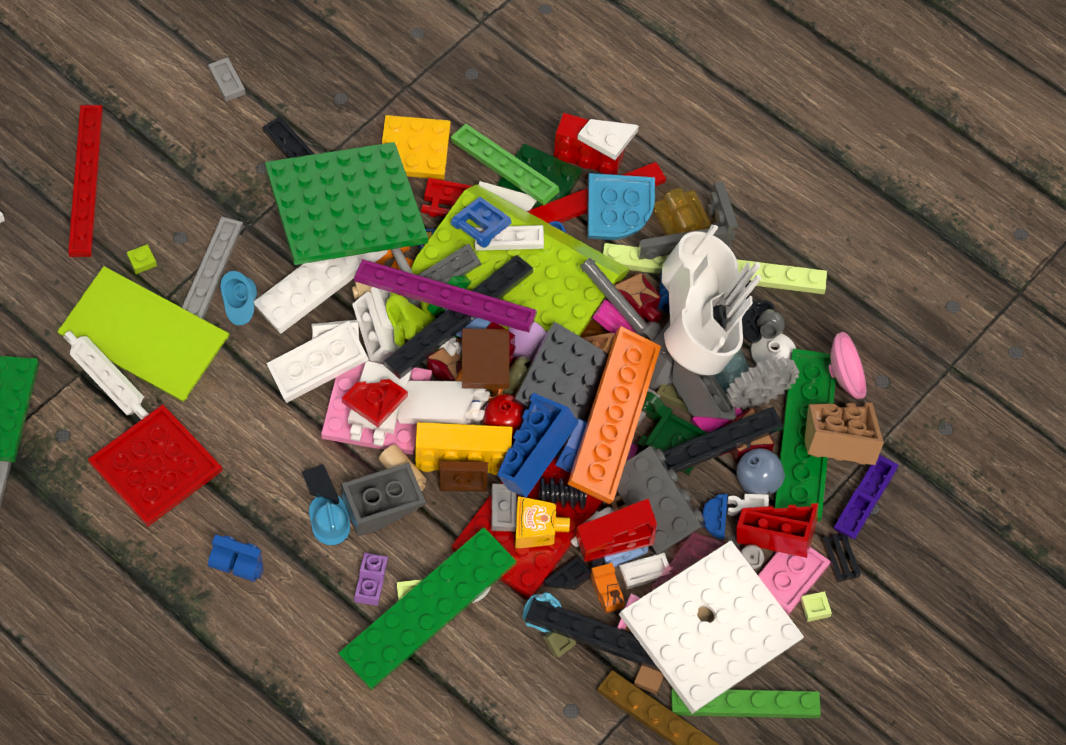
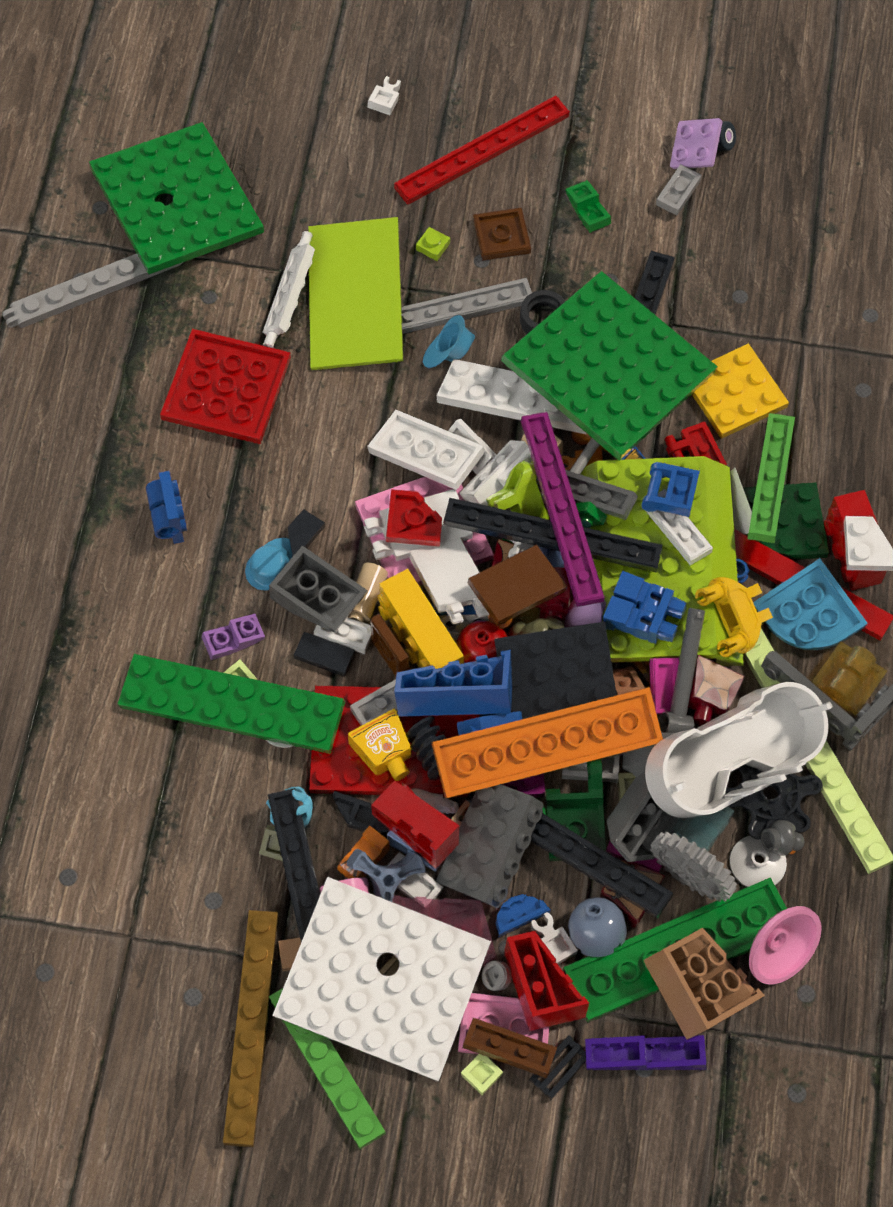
camera: 60 degrees right, 5 degrees up
(169, 210) = (501, 234): none -> reddish brown tile
(187, 142) = (587, 206): none -> green slope
(201, 43) = (699, 141): none -> lavender plate
(261, 238) = (536, 299): none -> black tyre
(429, 526) = (324, 654): none -> black tile
(434, 497) = (350, 634): none -> white plate
(557, 295) = (653, 606): none -> blue hips
(598, 244) = (737, 613): none -> yellow connector
(639, 578) = (386, 878): none -> sand blue piece
(811, 575) = (509, 1047): none -> reddish brown plate

